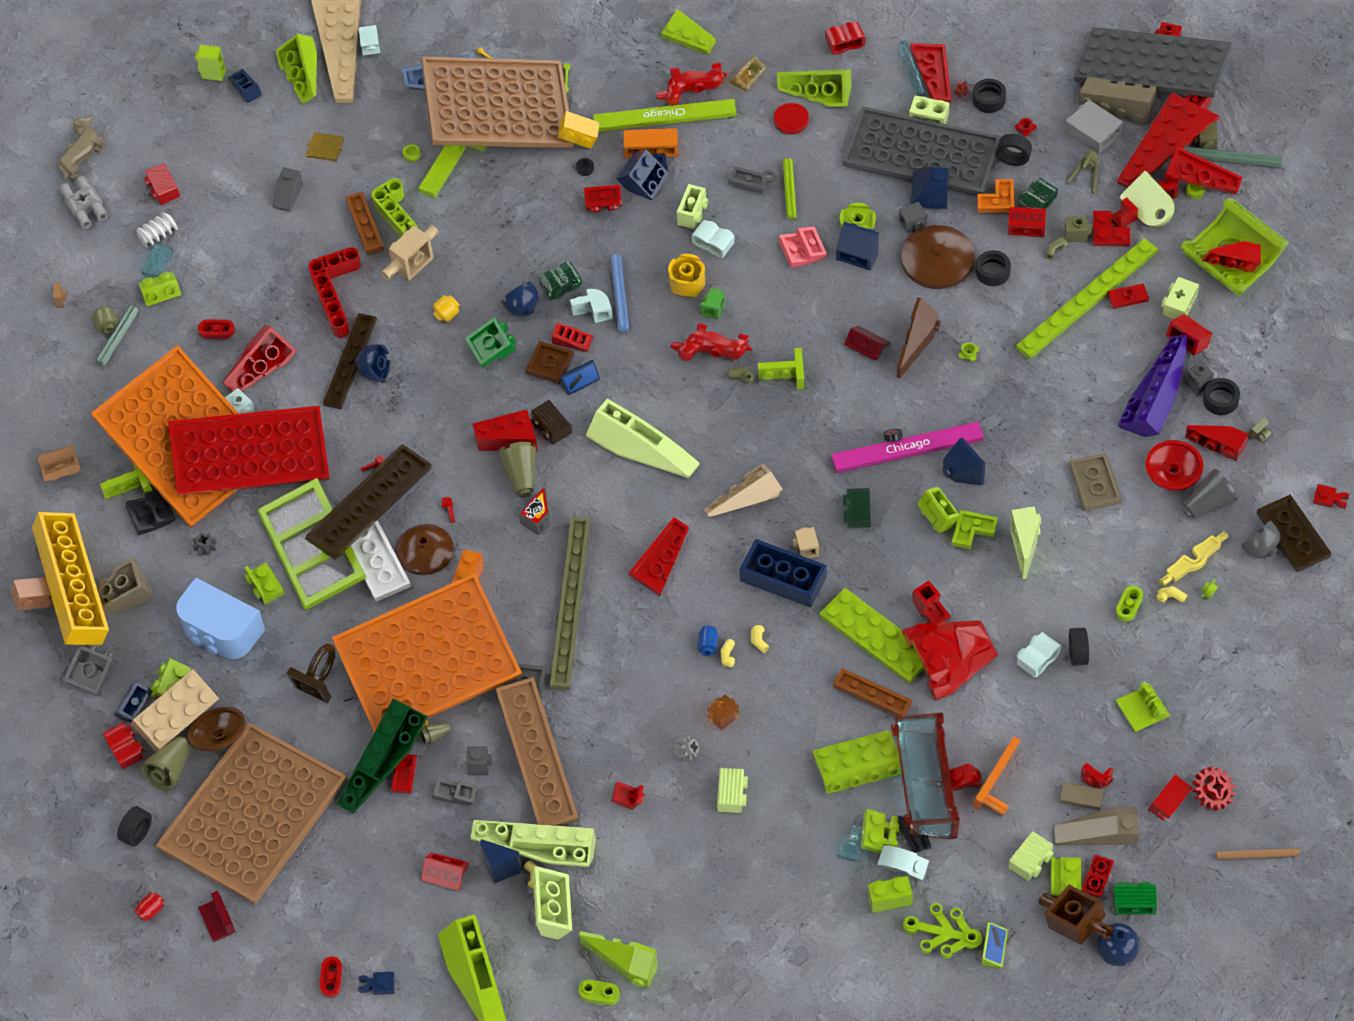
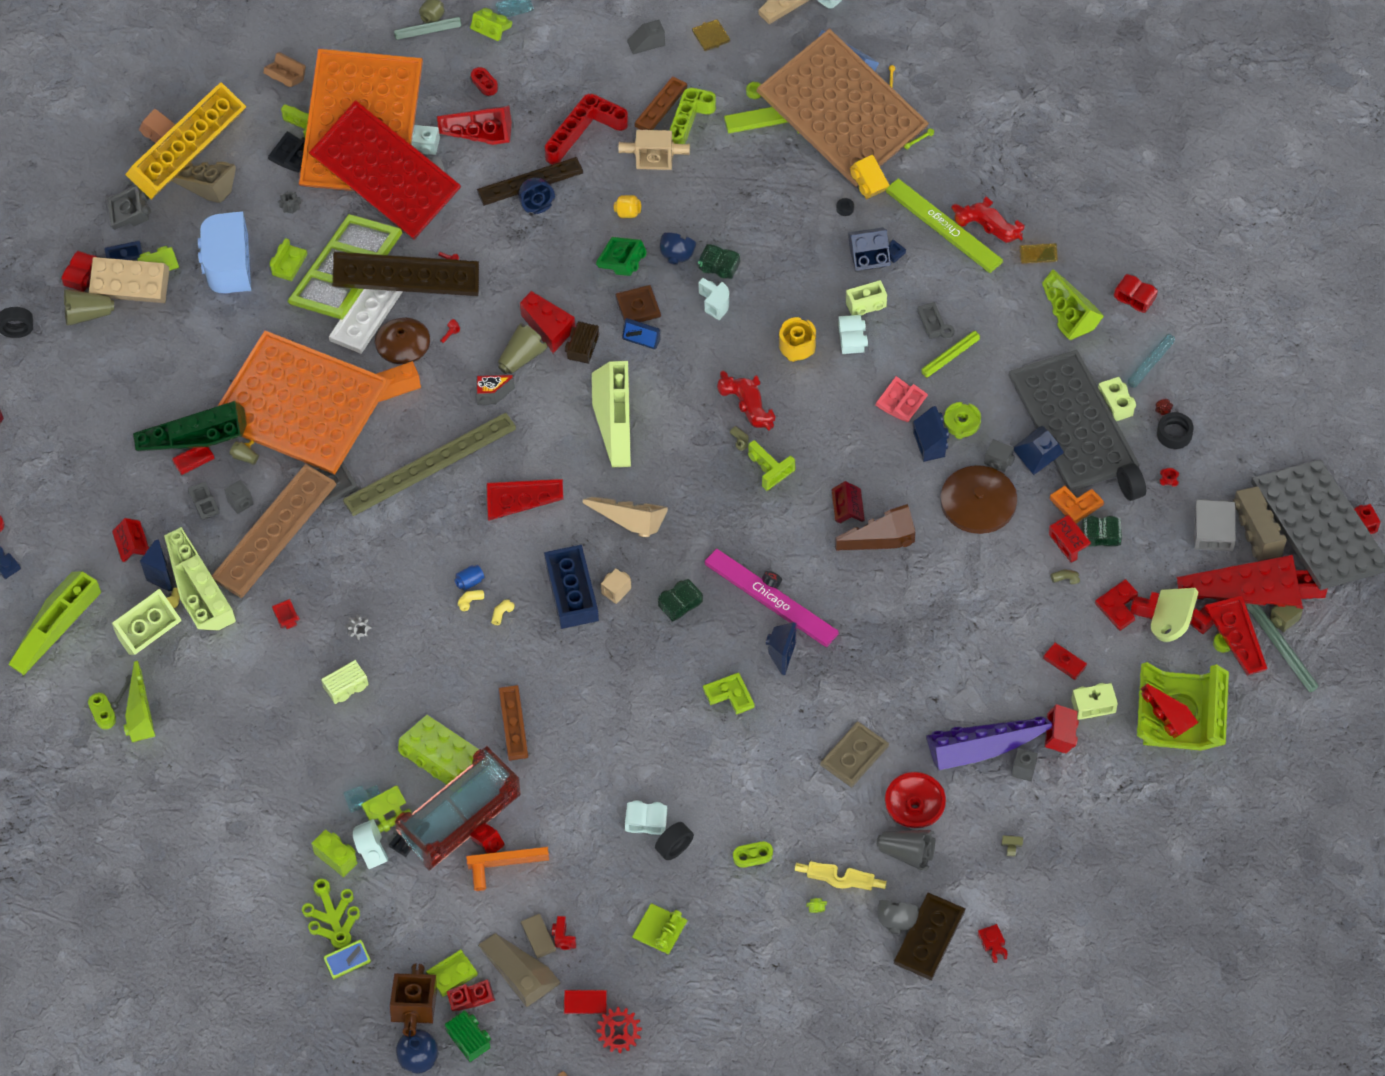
camera: 50 degrees right, 0 degrees up
(216, 729) = (134, 315): reddish brown dish -> none
(251, 813) = (86, 387): medium nougat plate -> none
(310, 682) = (218, 345): dark brown tile -> none
(565, 330) = (671, 293): red slope -> none
(602, 198) = (824, 236): red bracket -> none
(619, 291) = (745, 307): medium blue axle -> none
(653, 140) = (906, 232): orange brick -> none
(688, 33) = (1038, 187): lime wing -> none
(713, 303) = (789, 375): bright green brick -> none
(723, 711) = (412, 630): clear orange brick -> none
(791, 118) = (1021, 310): red tile -> none
(872, 634) = (572, 691): lime plate -> none
(927, 603) = (628, 707): red brick -> none
(933, 68) = (1163, 374): red wing -> none
(938, 510) = (723, 655): lime brick -> none
(950, 652) = (594, 752): red wedge -> none
(968, 347) = (902, 576): lime plate -> none
(993, 279) = (996, 556): black tyre -> none
(1024, 534) = (745, 736): yellowish green slope -> none
(1031, 856) = (449, 933): yellowish green brick -> none
(1077, 229) = (1096, 579): olive brick -> none
(1086, 299) = (1036, 632): lime plate -> none
(1088, 161) = (1175, 545): olive plant -> none
(1169, 592) = (791, 880): light yellow arm -> none
(1221, 384) = (1023, 780): black tyre -> none
(1222, 439) = (978, 822): red slope -> none

